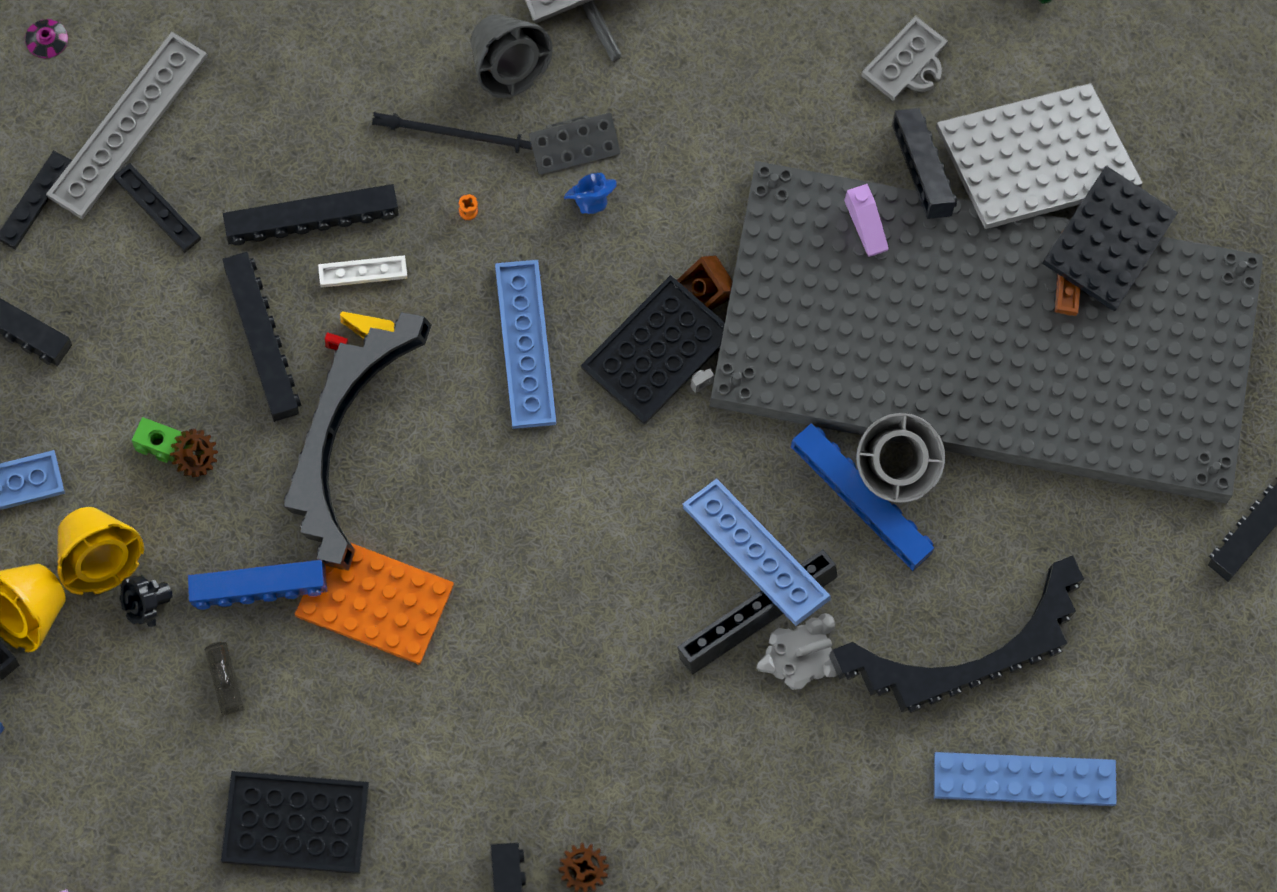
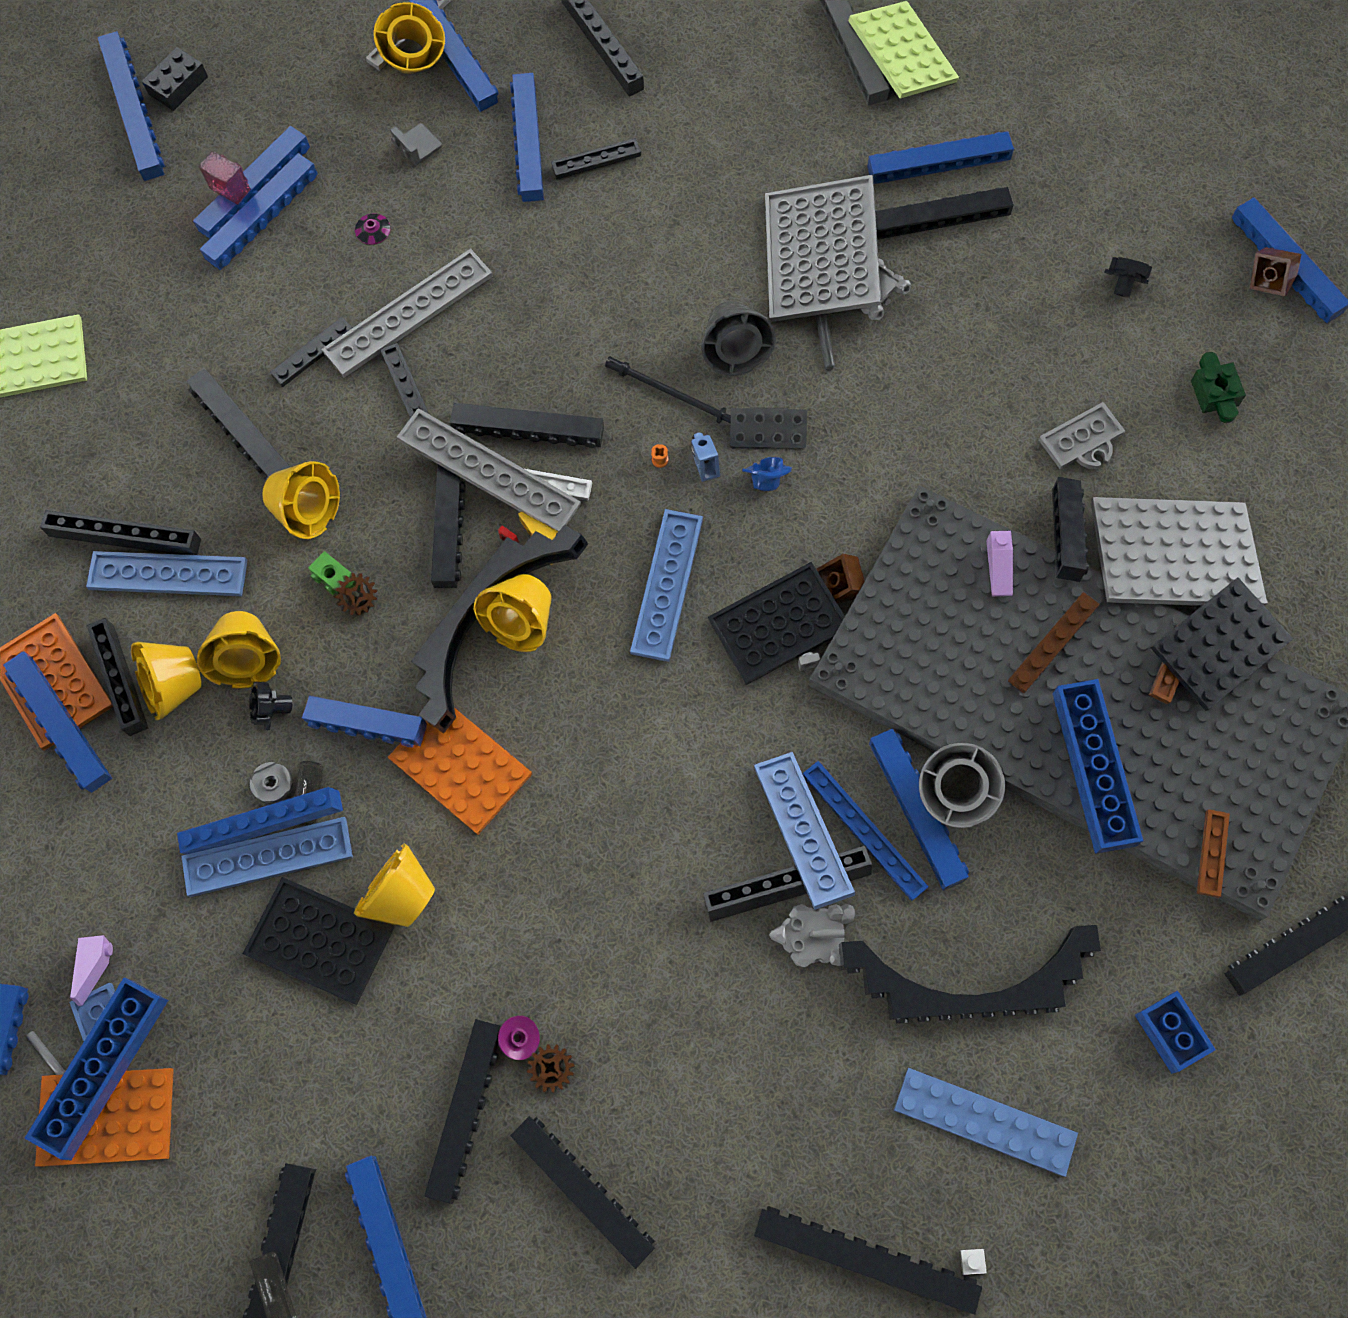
camera: 30 degrees right, 0 degrees up
(96, 366) = (303, 498): none -> yellow cone
(180, 692) = (261, 777): none -> light grey plate
(189, 720) = (261, 821): none -> blue brick
(205, 756) = (266, 857): none -> medium blue plate
(290, 276) = (488, 470): none -> light grey plate
(362, 742) = (397, 891): none -> yellow cone
(379, 421) = (515, 612): none -> yellow cone
(518, 193) = (703, 450): none -> medium blue torso
(547, 845) = (528, 1037): none -> magenta dish
(816, 535) = (865, 831): none -> blue plate
(945, 286) = (1053, 642): none -> reddish brown plate
(1026, 398) = (1097, 766): none -> blue brick
(1162, 450) = (1213, 853): none -> dark orange plate
(1177, 634) = (1175, 1032): none -> blue brick

